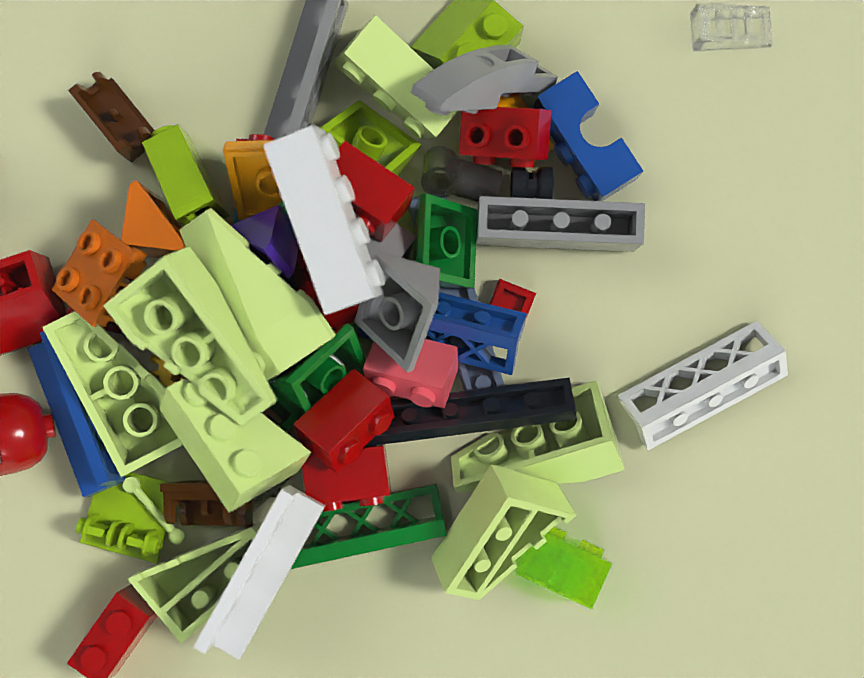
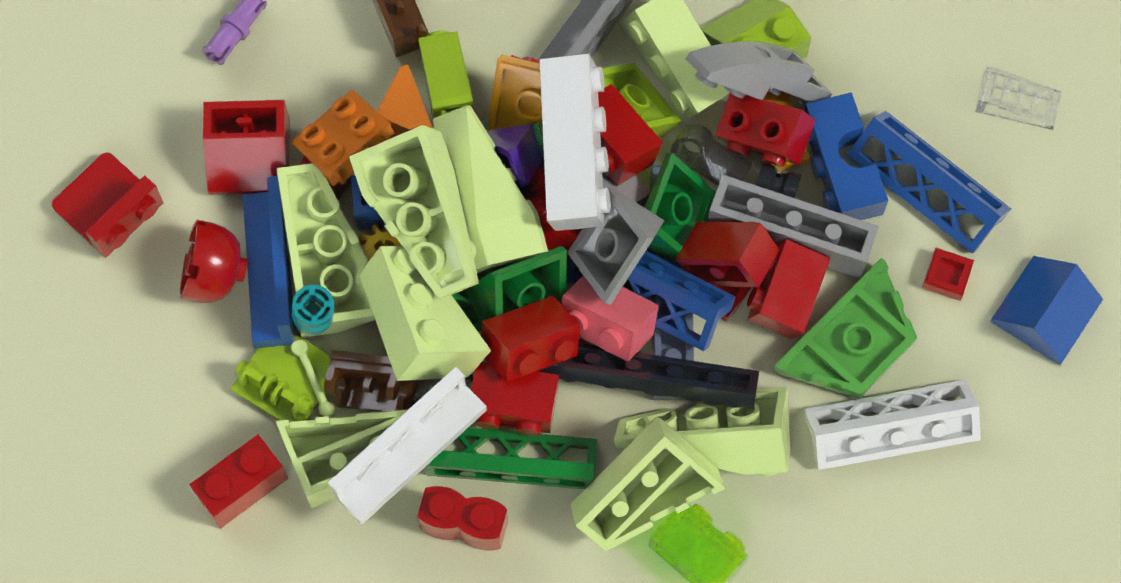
camera: 15 degrees right, 15 degrees down
(132, 460) = (313, 318): none -> teal wheel
(325, 604) = (451, 516): none -> red brick
(508, 273) = (728, 253): none -> red brick
(572, 286) = (788, 290): none -> red brick
(646, 313) = (854, 339): none -> bright green wing
(679, 123) = (937, 169): none -> blue fence
(713, 221) = (948, 274): none -> red tile
(814, 225) = (1048, 307): none -> blue slope

